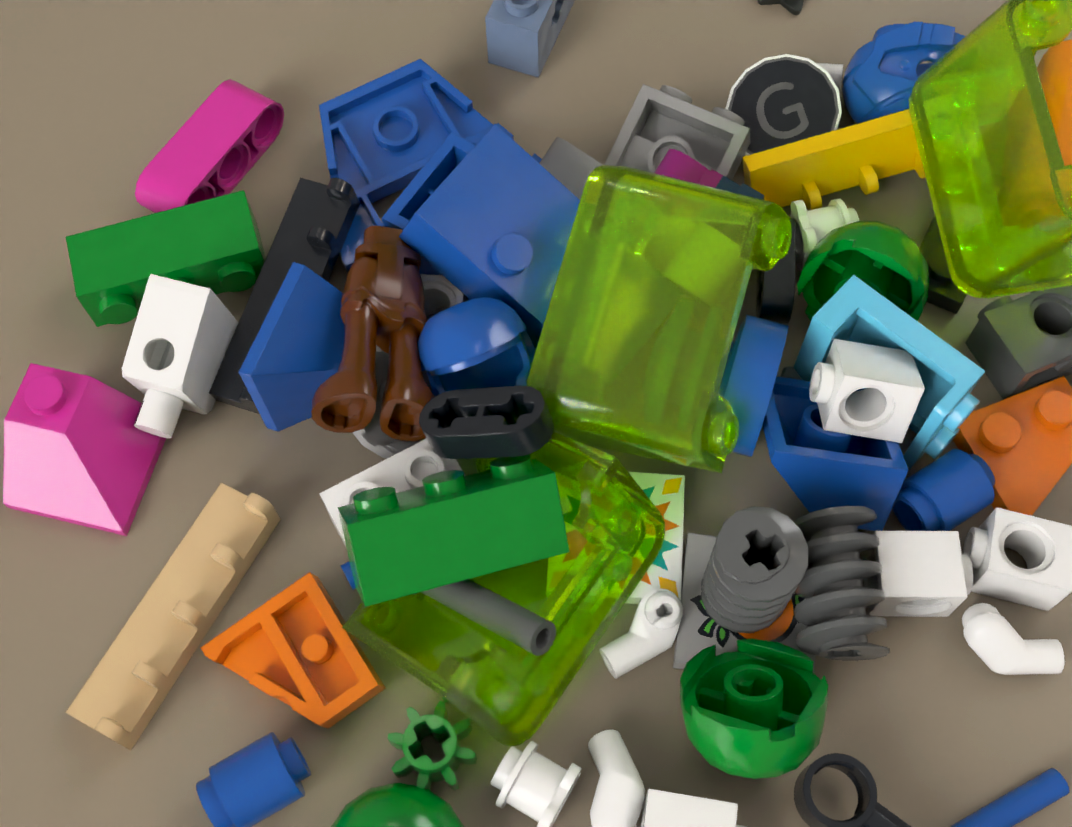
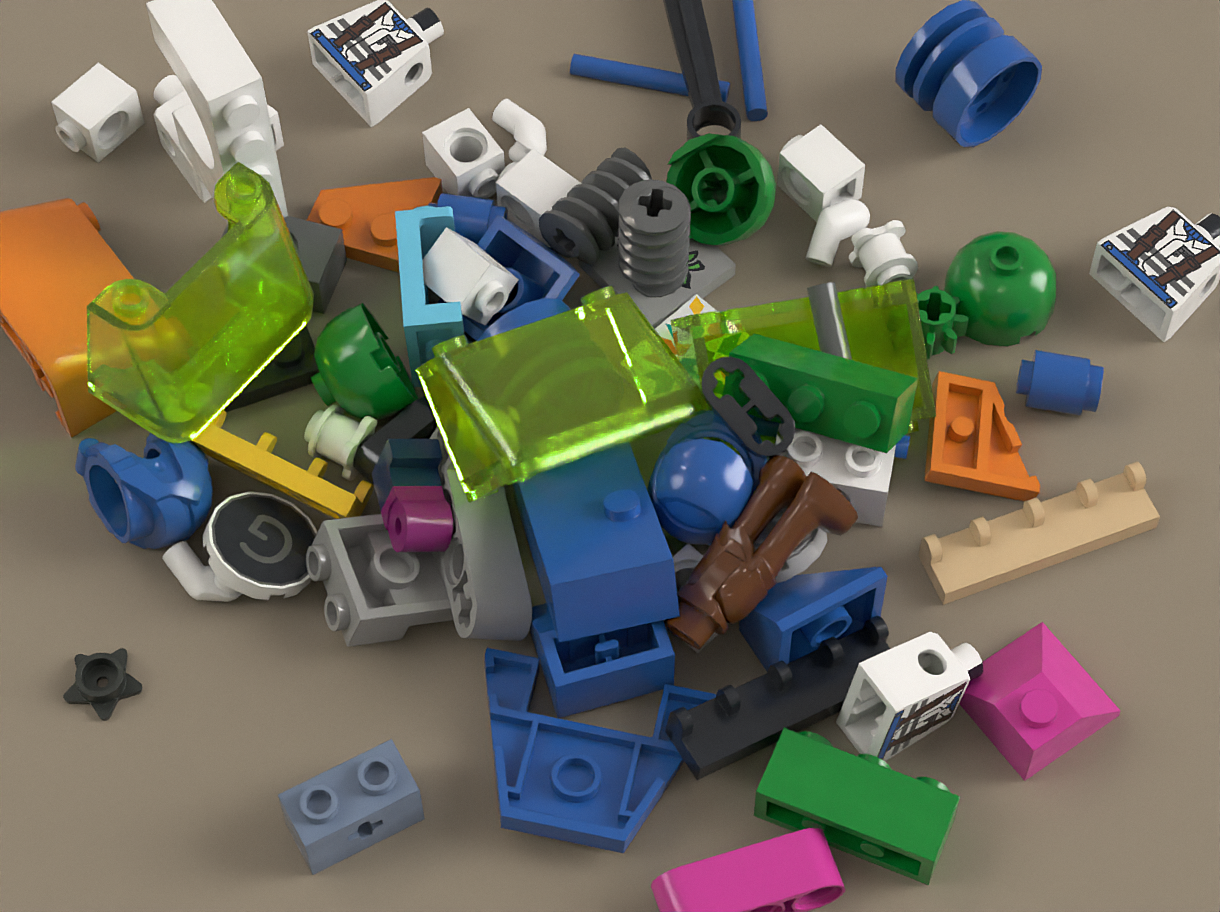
camera: 140 degrees left, 5 degrees down
(649, 634) = (726, 291): white arm -> none

